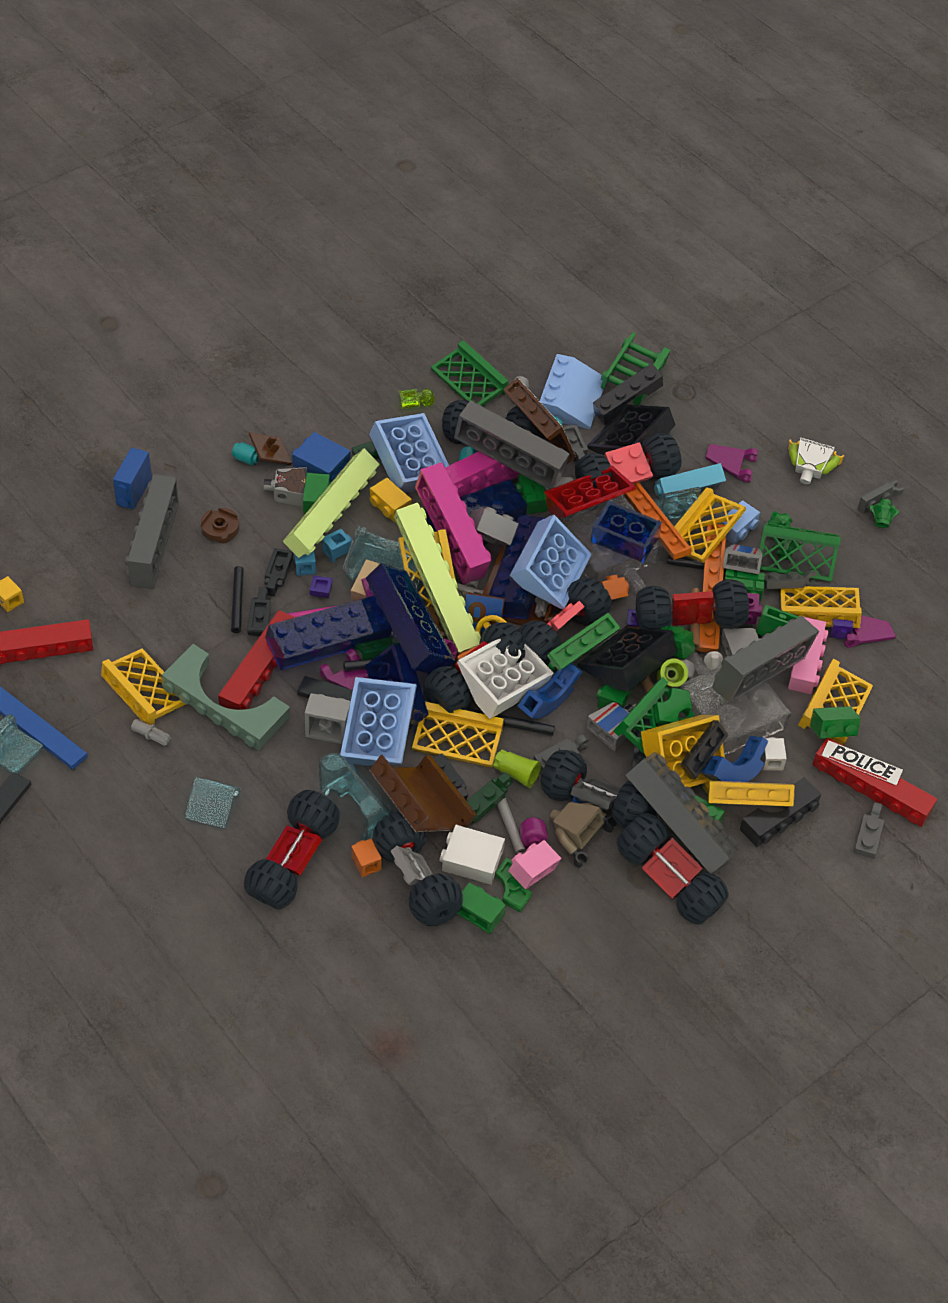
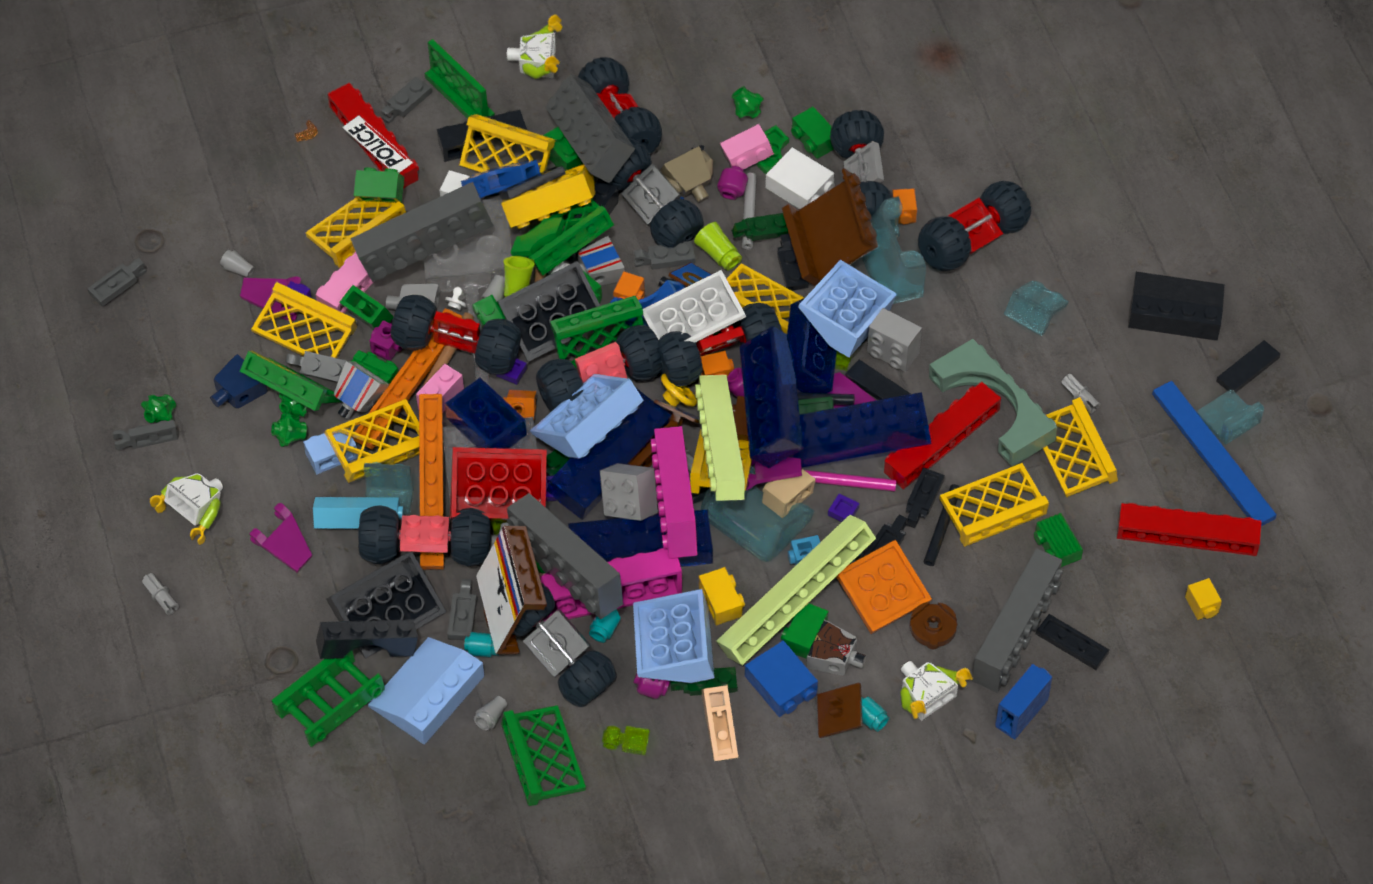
camera: 155 degrees left, 5 degrees up
(81, 838) = (1177, 306): none -> black slope
(104, 543) = (1072, 642): none -> black tile
(137, 606) = (1058, 539): none -> green brick
(189, 610) = (998, 521): none -> yellow fence
(209, 476) = (929, 687): none -> torso
(264, 533) = (883, 586): none -> orange plate
(355, 422) = (720, 722): none -> light nougat slope
(522, 732) = (689, 274): none -> blue piece
(556, 914) = (747, 103): none -> green rock
(575, 707) = (629, 286): none -> orange brick
(683, 578) = (444, 382): none -> bright pink brick
(778, 906) = (538, 51): none -> torso
(793, 402) = (160, 593): none -> light grey axle
(828, 852) = (456, 83): none -> green fence
(846, 550) = (236, 386): none -> dark blue torso
(908, 640) = (236, 263): none -> light grey cone
(932, 773) = (307, 134): none -> clear orange animal

